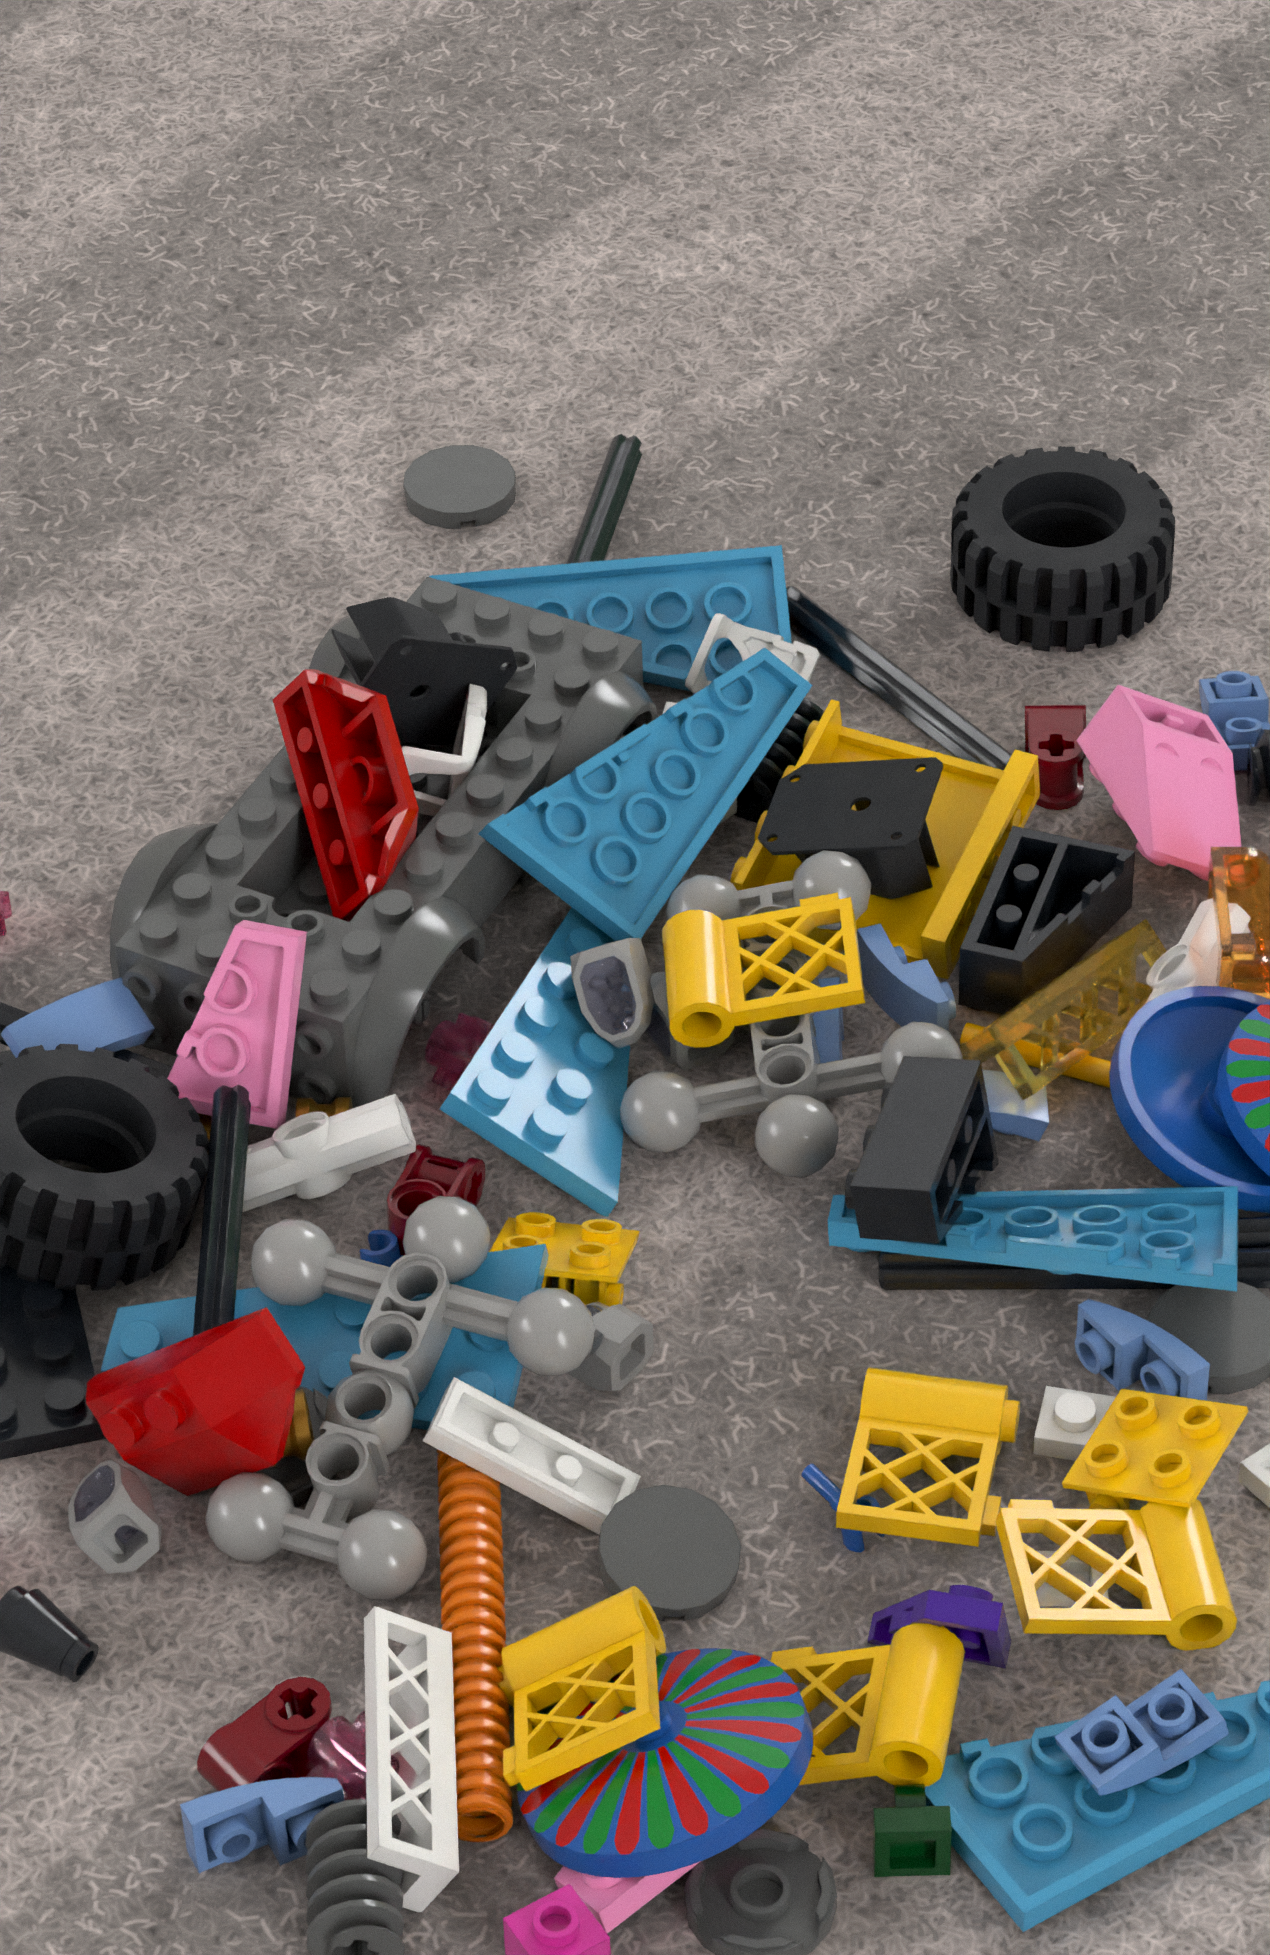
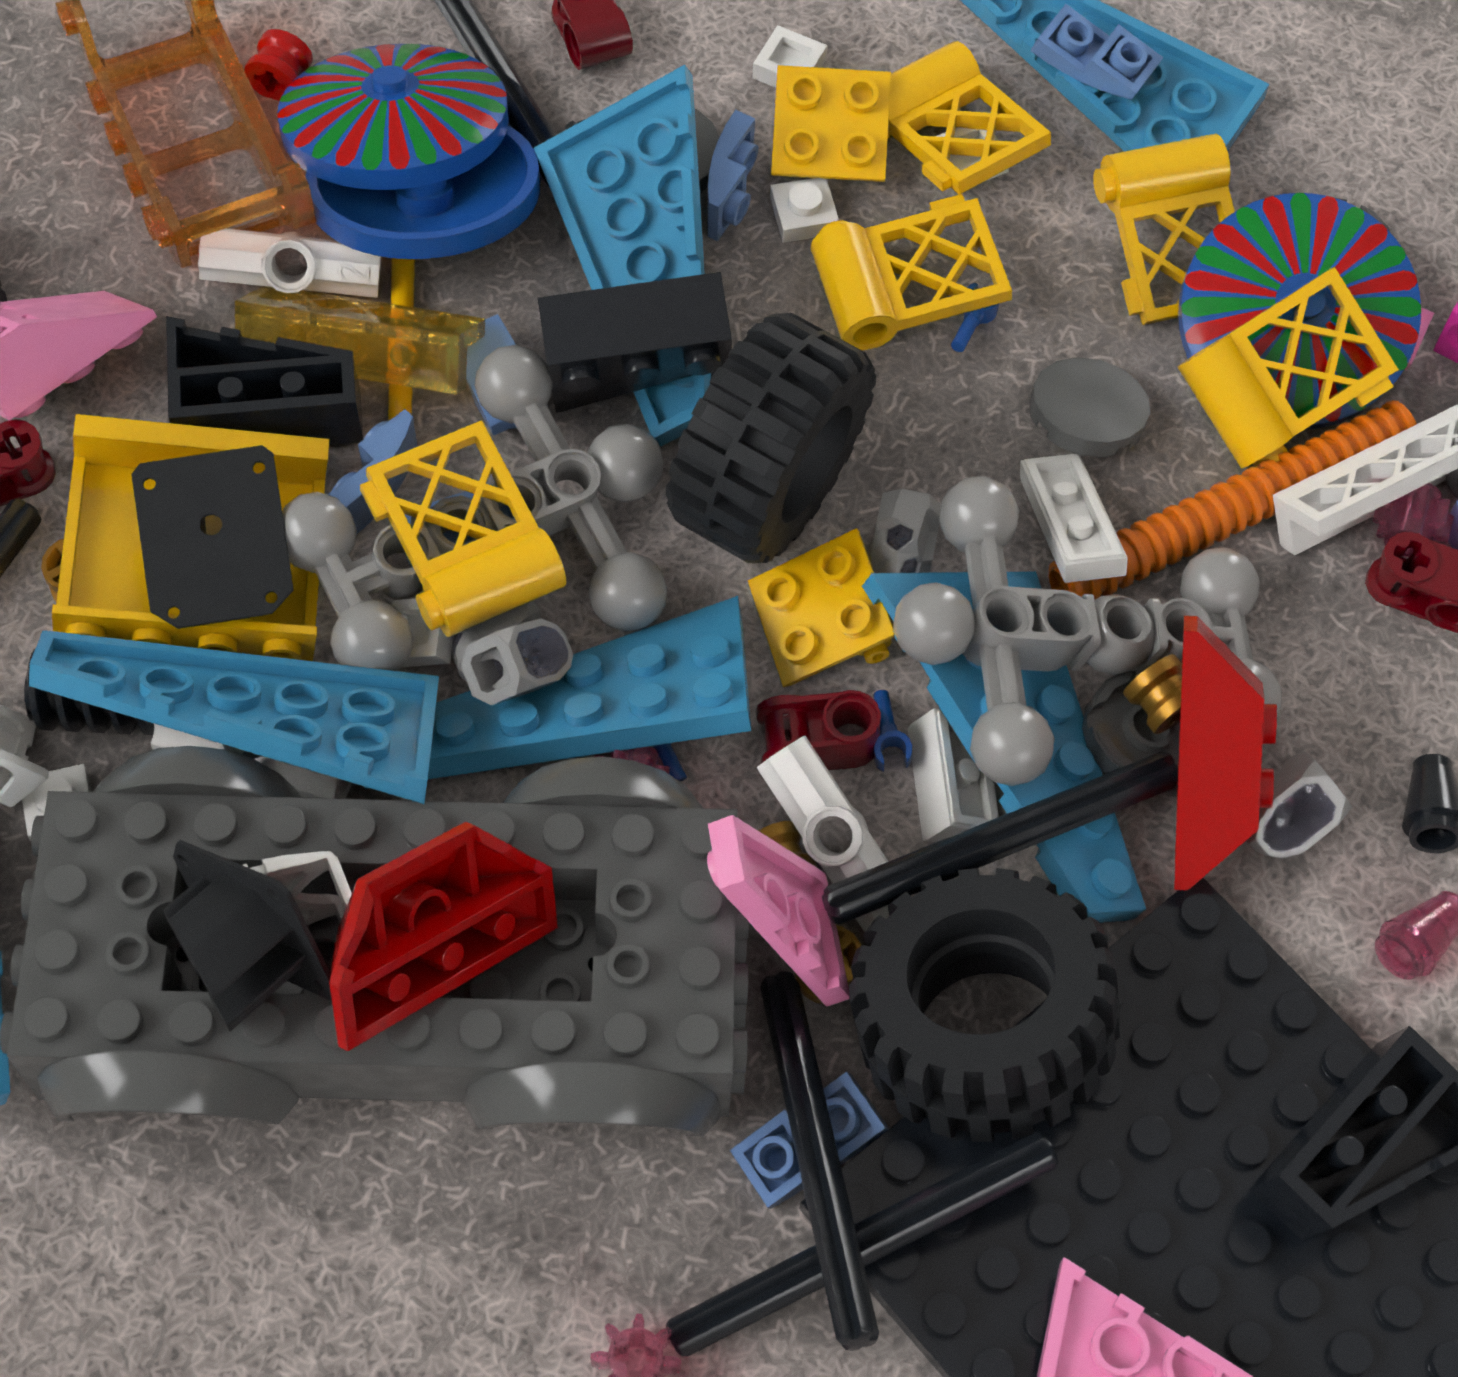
camera: 120 degrees left, 20 degrees up
(92, 1018) = (835, 1092): medium blue slope -> none
(724, 1191) = (770, 437): none -> black tyre
(911, 1836) = (1251, 165): dark green tile -> none
(963, 1611) = (1073, 186): dark purple wing -> none

